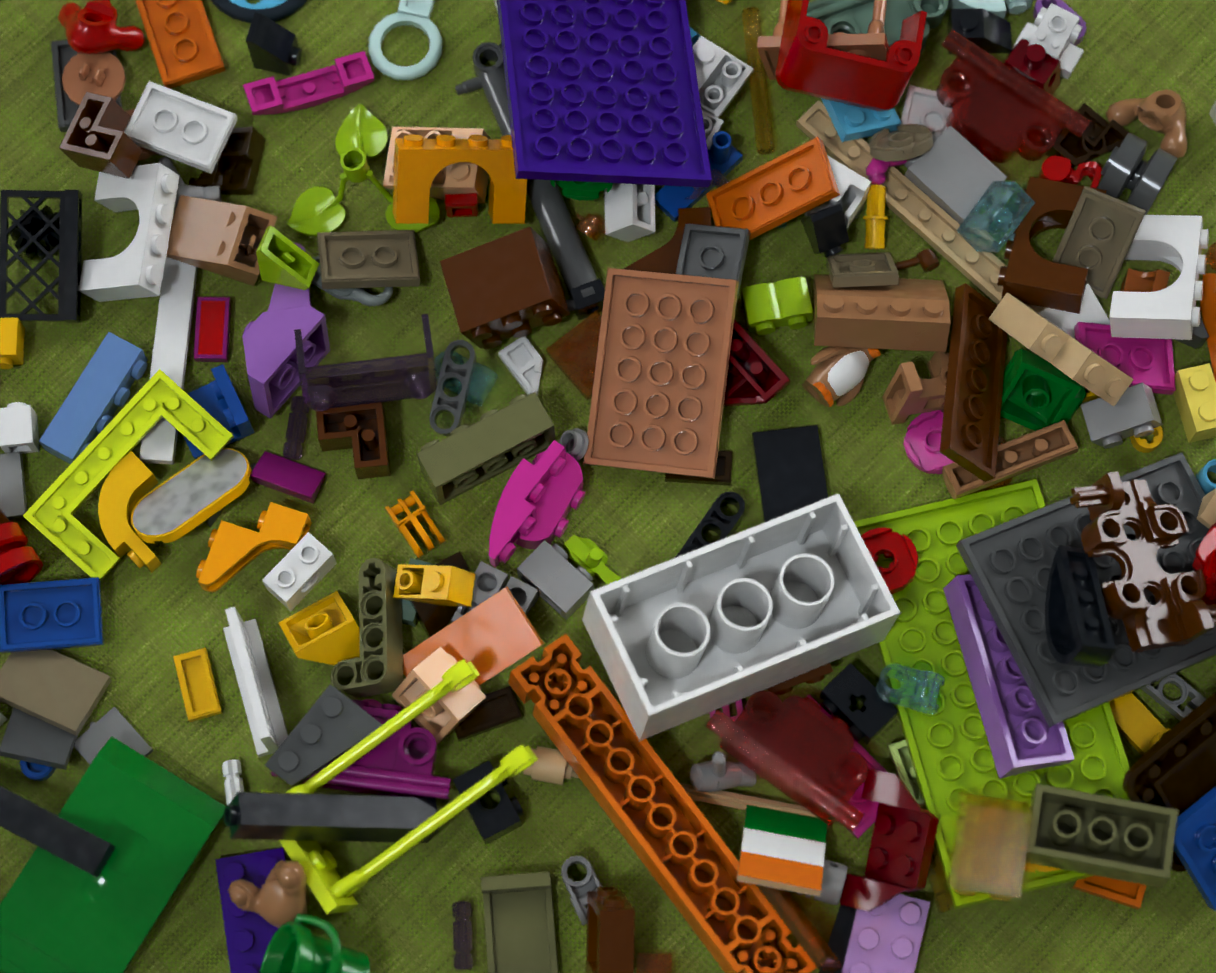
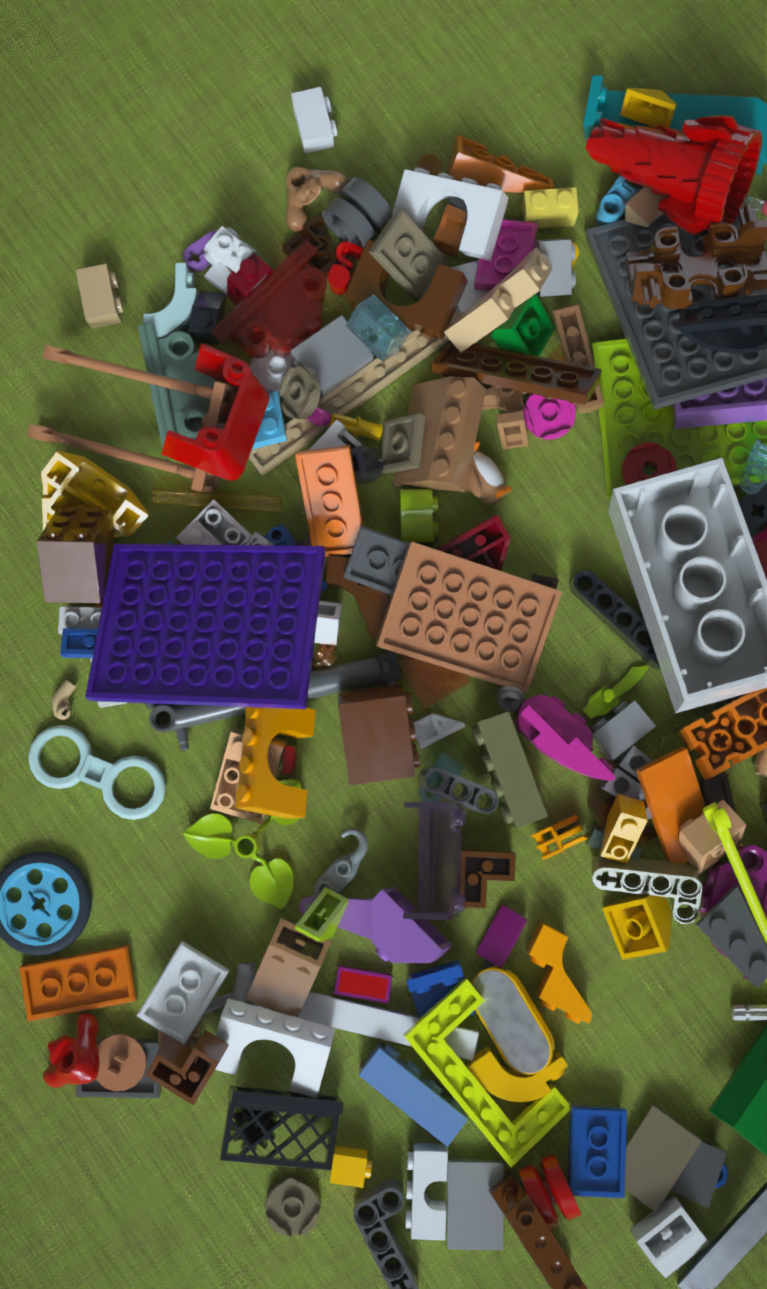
camera: 80 degrees left, 10 degrees up
(110, 725) = (695, 1107): light grey piece -> none
(197, 684) = (665, 1032): yellow tile -> none
(237, 164) = (220, 945): dark brown slope -> none
(255, 683) = (678, 984): white fence -> none
(272, 46) = (119, 901): black slope -> none
(296, 429) = (464, 925): axle -> none
(299, 571) = (587, 937): white brick -> none
(310, 88) = (159, 875): dark pink slope -> none
(368, 259) = (326, 845): dark tan tile -> none
(789, 469) = (560, 531): black tile -> none
(925, 258) = (395, 393): reddish brown hand -> none

